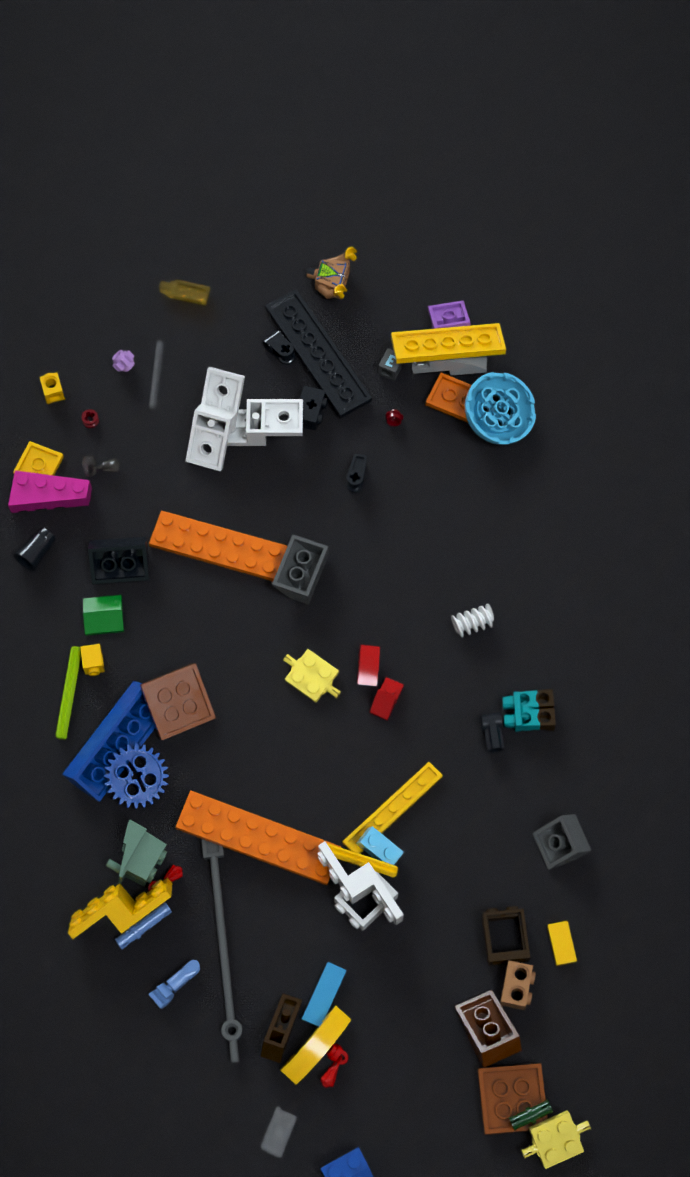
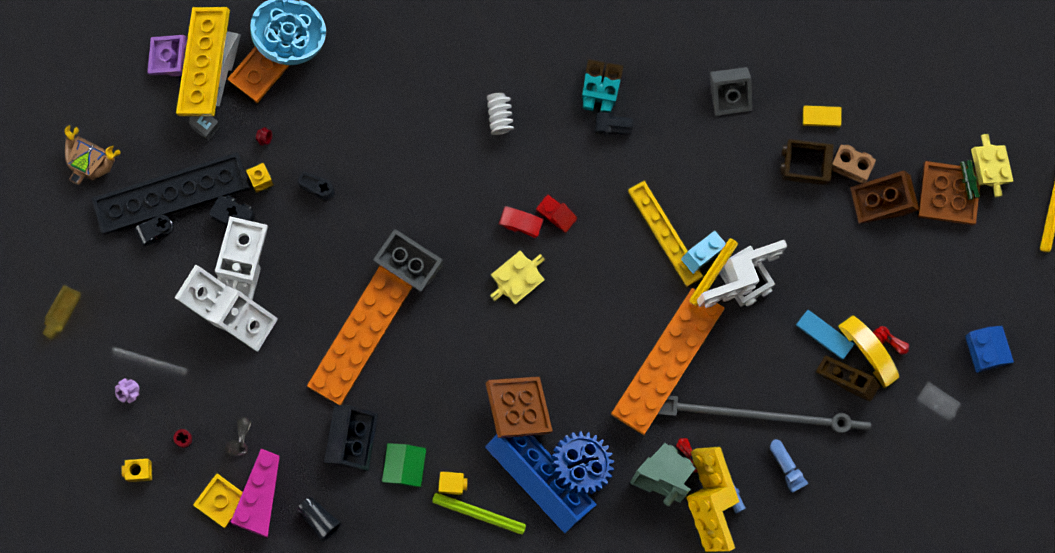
camera: 80 degrees left, 10 degrees up
(351, 422) = (260, 177): none -> yellow brick

